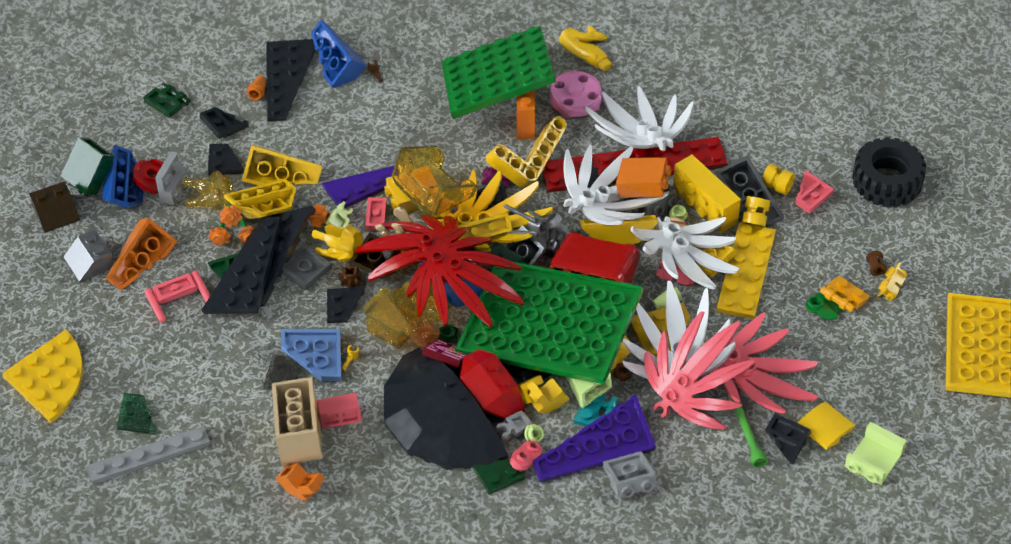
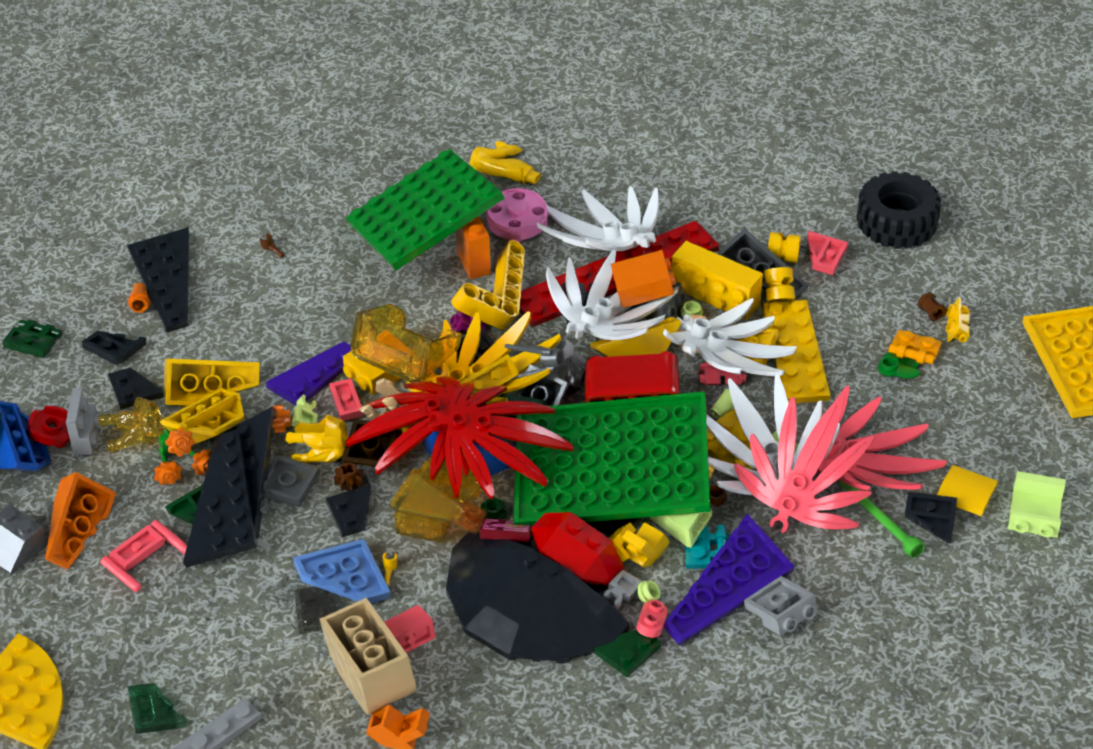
camera: 20 degrees left, 5 degrees down
(338, 59) = (222, 243): blue wedge -> none

